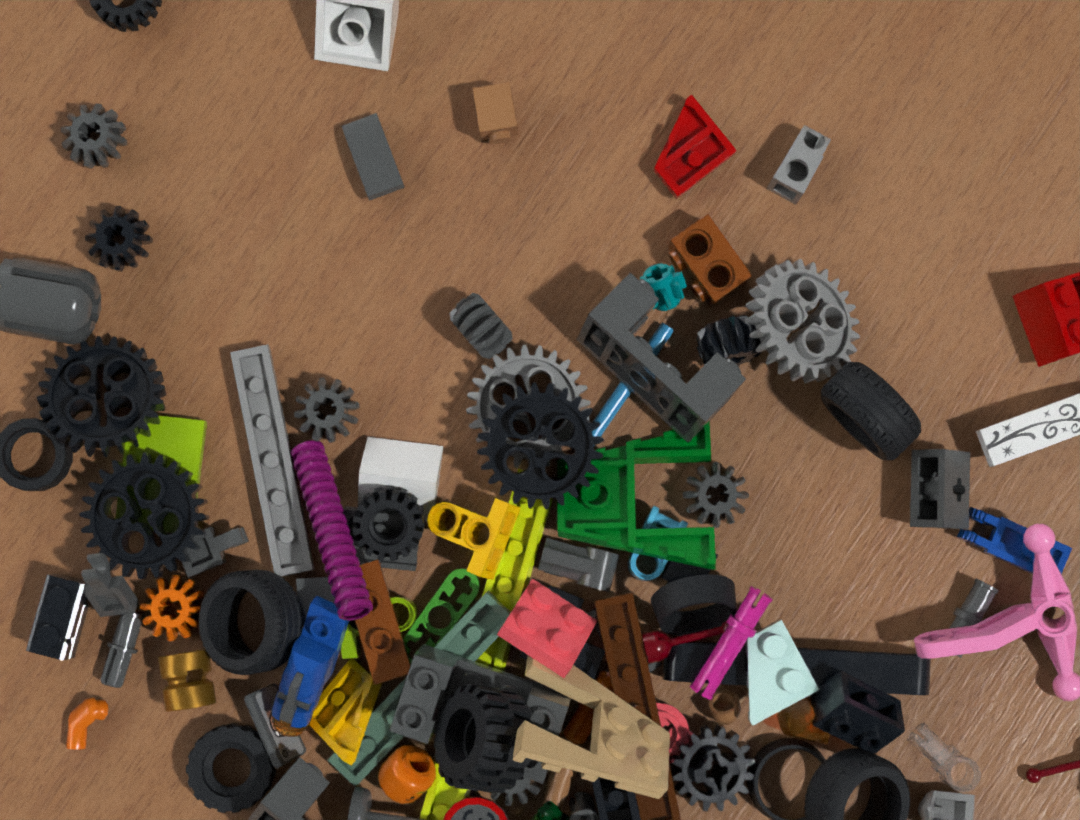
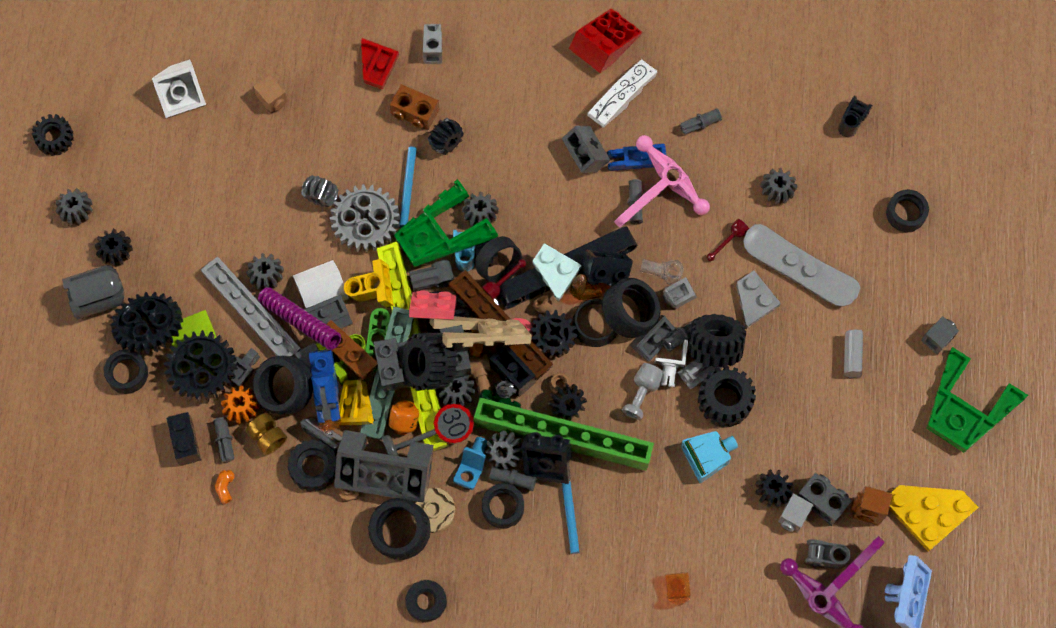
camera: 30 degrees left, 15 degrees down
(106, 593) = (202, 411): dark grey plate -> none
(372, 156) = (221, 145): dark grey slope -> none
(382, 545) = (333, 290): black tyre -> none
(546, 410) = (373, 208): black gear -> none
(611, 339) = (429, 171): dark grey plate -> none
(666, 285) = (398, 129): teal gear -> none
(731, 642) = (526, 265): dark pink pin -> none
(782, 305) = (459, 103): light grey gear -> none
(871, 410) = (530, 128): black tyre -> none

